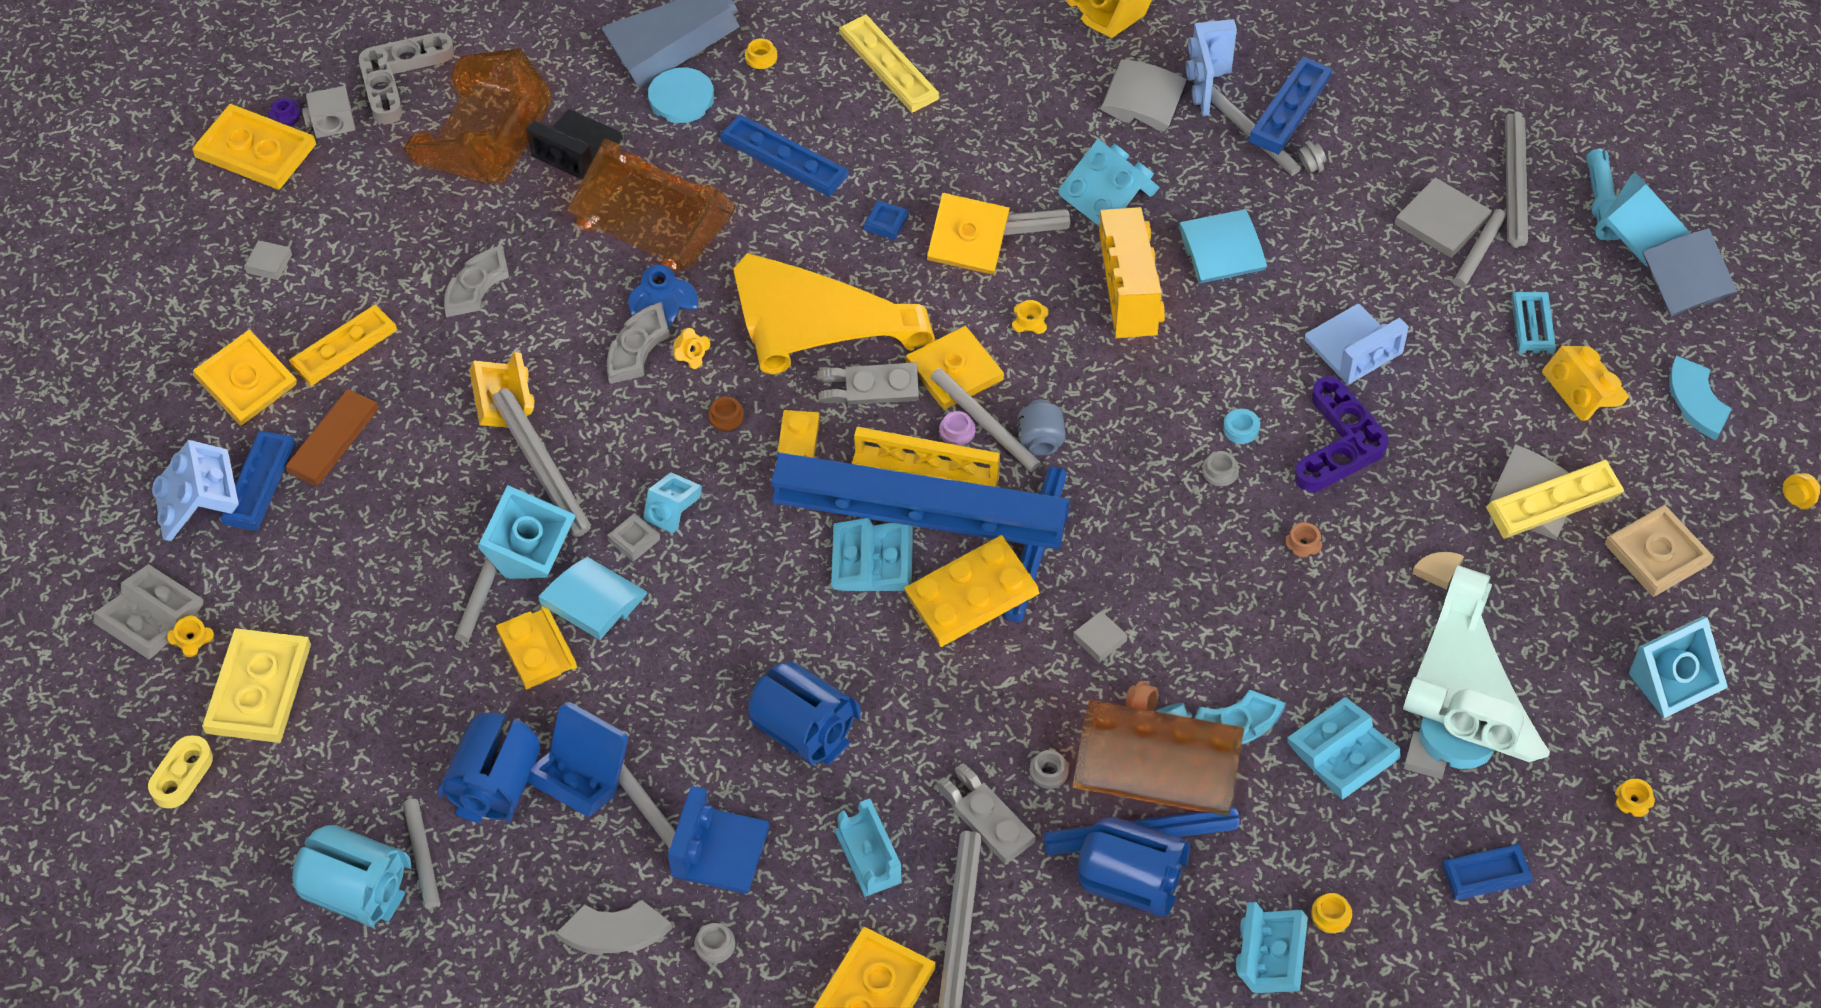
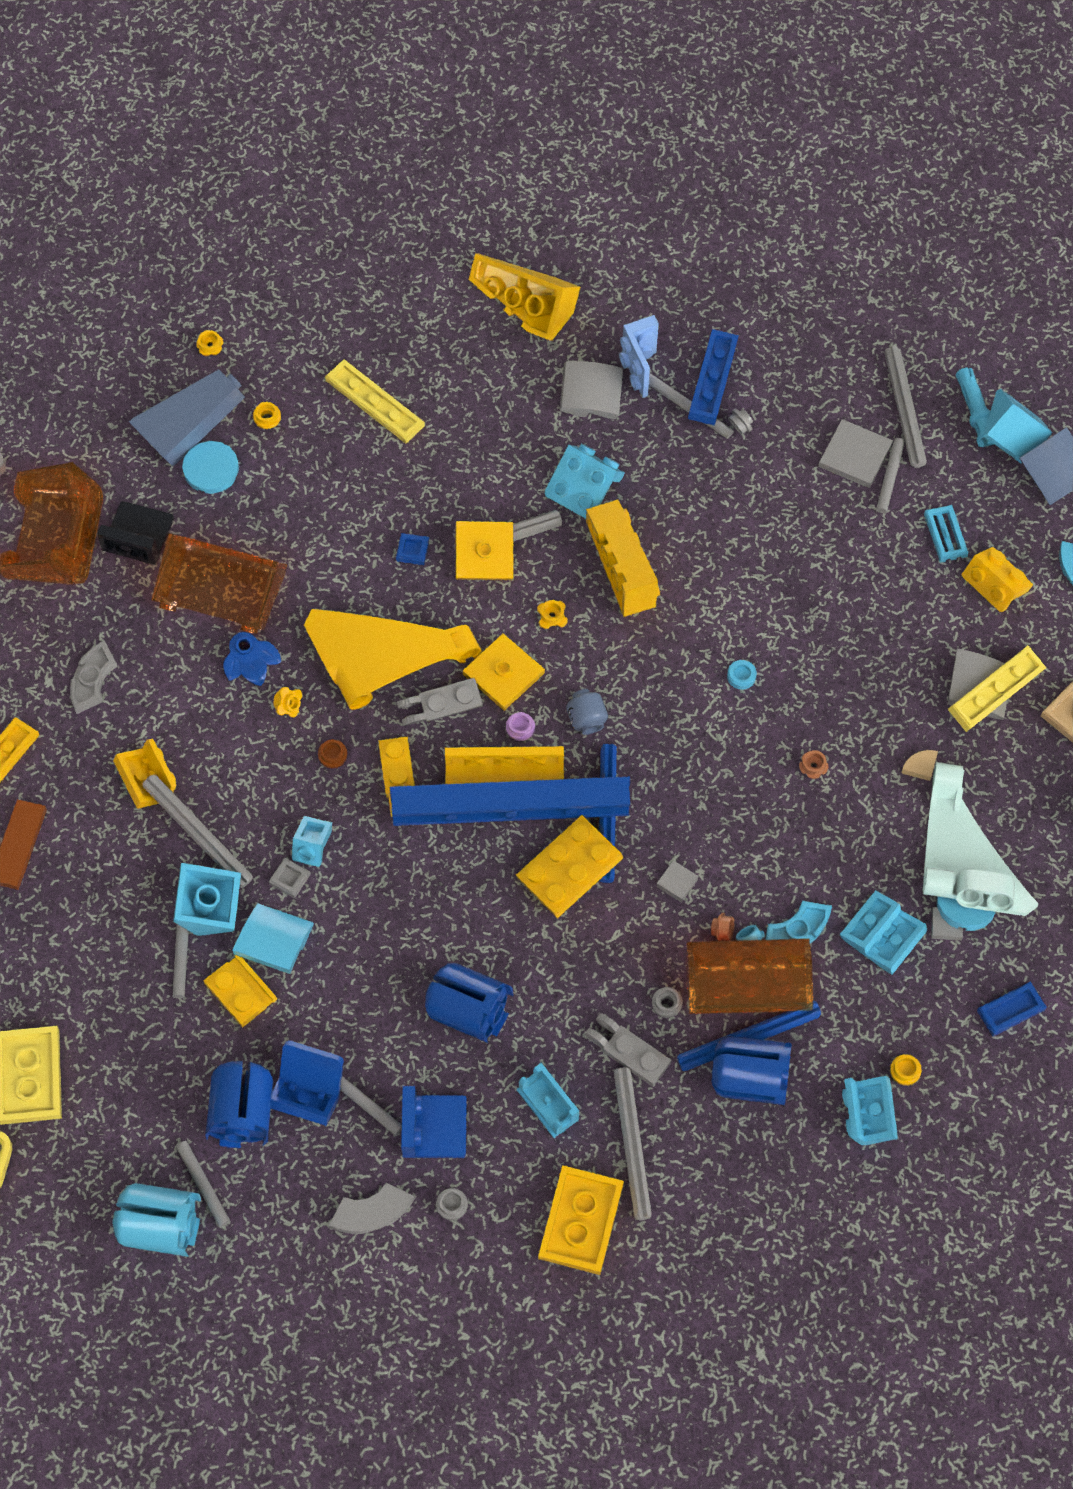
camera: 15 degrees left, 10 degrees up
(634, 342) = (239, 706): light grey tile -> none
(784, 155) = (312, 506): blue tile -> none
(871, 556) = (482, 852): medium azure slope -> none
(990, 424) = (541, 714): light grey bar -> none
(1220, 469) = (734, 716): light grey plate -> none
(1223, 246) = (689, 516): medium azure slope -> none
(1351, 442) = (830, 673): dark purple beam -> none
(1357, 343) = (813, 582): light blue bracket -> none

